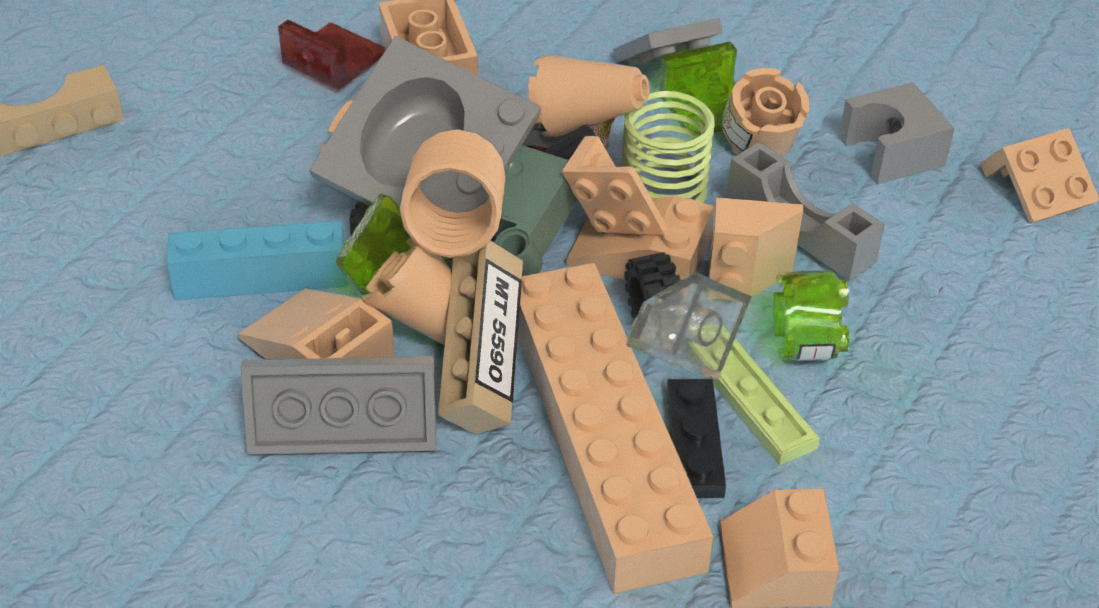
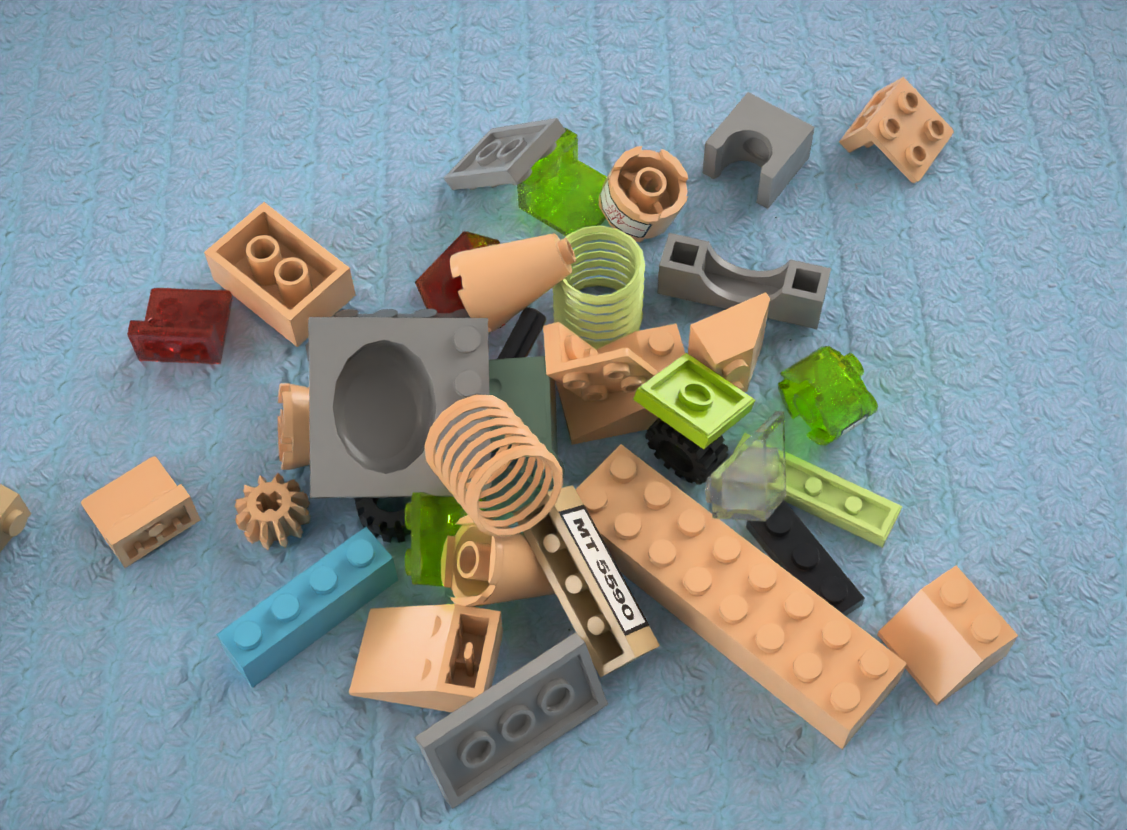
camera: 30 degrees left, 15 degrees up
(193, 149) = (140, 511): none -> light nougat bracket
(287, 191) = (272, 511): none -> light nougat gear
(673, 247) = (694, 400): none -> lime tile

